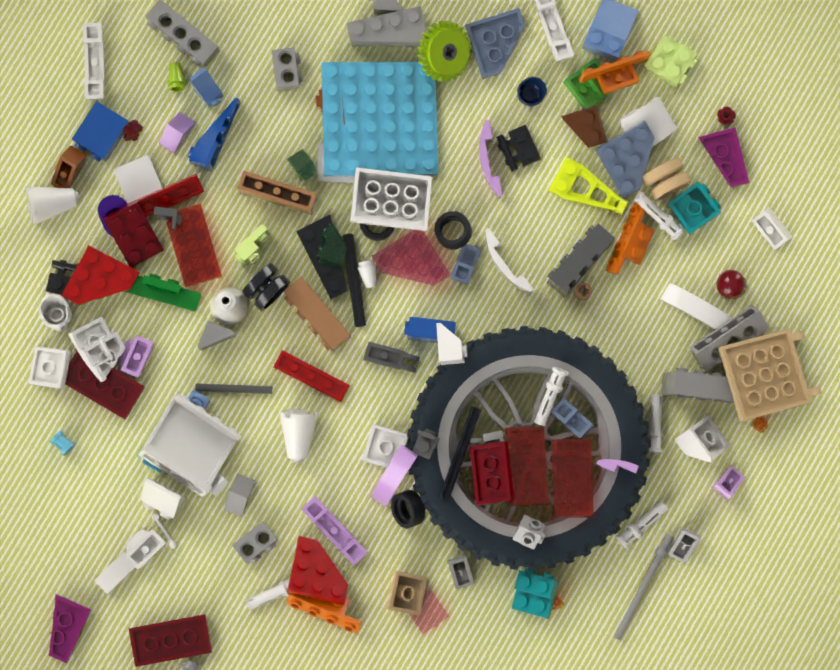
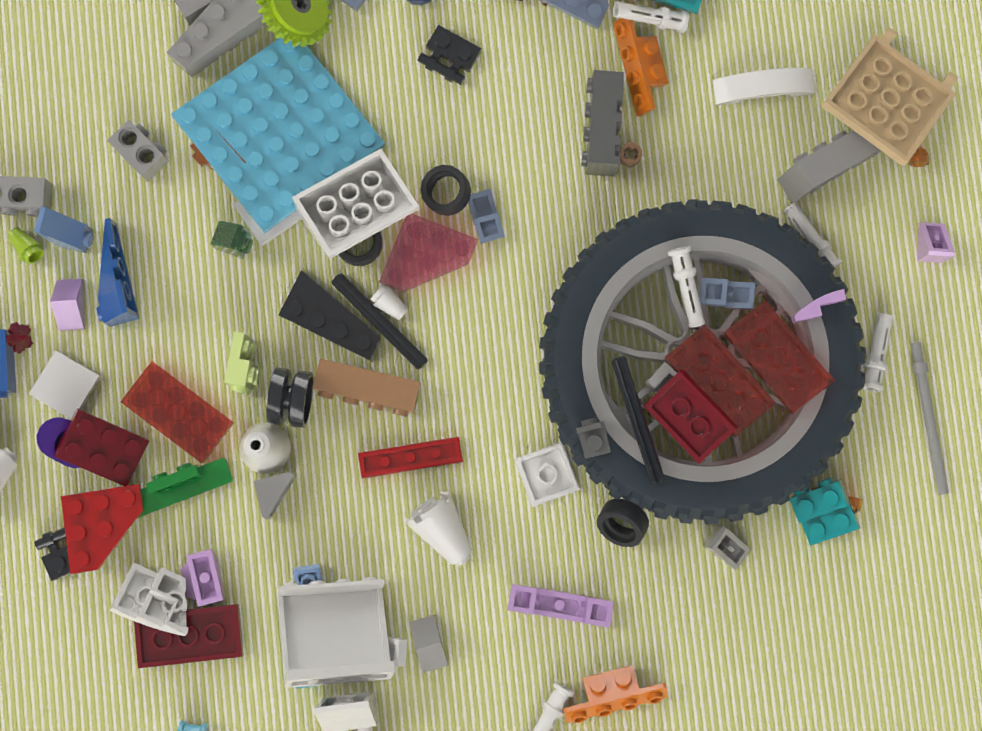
camera: 40 degrees left, 0 degrees up
(49, 367) = (117, 661): white tile -> none
(55, 312) = (78, 596): white hair -> none
(165, 214) = (122, 398): dark grey bracket -> none
(171, 194) = (112, 376): red tile -> none
(233, 388) = (336, 533): dark grey bar -> none
(252, 538) = (479, 682): light grey brick -> none
(277, 192) = (226, 287): medium nougat brick -> none
(315, 573) = (576, 668): red plate -> none
(333, 247) = (332, 303): clear green slope -> none
(388, 357) = (478, 375): dark grey hinge -> none
(393, 475) = (582, 498): lavender slope -> none
(407, 593) = (689, 614): tan slope -> none
(425, 329) = (503, 313): blue brick -> none
(431, 613) = (722, 617): piece -> none
(449, 347) = (540, 312): white slope -> none
(493, 182) = (450, 109): lavender slope -> none
(520, 282) = (559, 193): white slope -> none
(529, 532) = (780, 450): light grey brick -> none
(565, 179) = (523, 53): neon yellow plate -> none
(684, 545) = (938, 340): light grey slope -> none
(703, 440) = (874, 218): white slope -> none
(719, 337) = (825, 69): light grey brick -> none
(731, 284) = (777, 34): dark red hair -> none

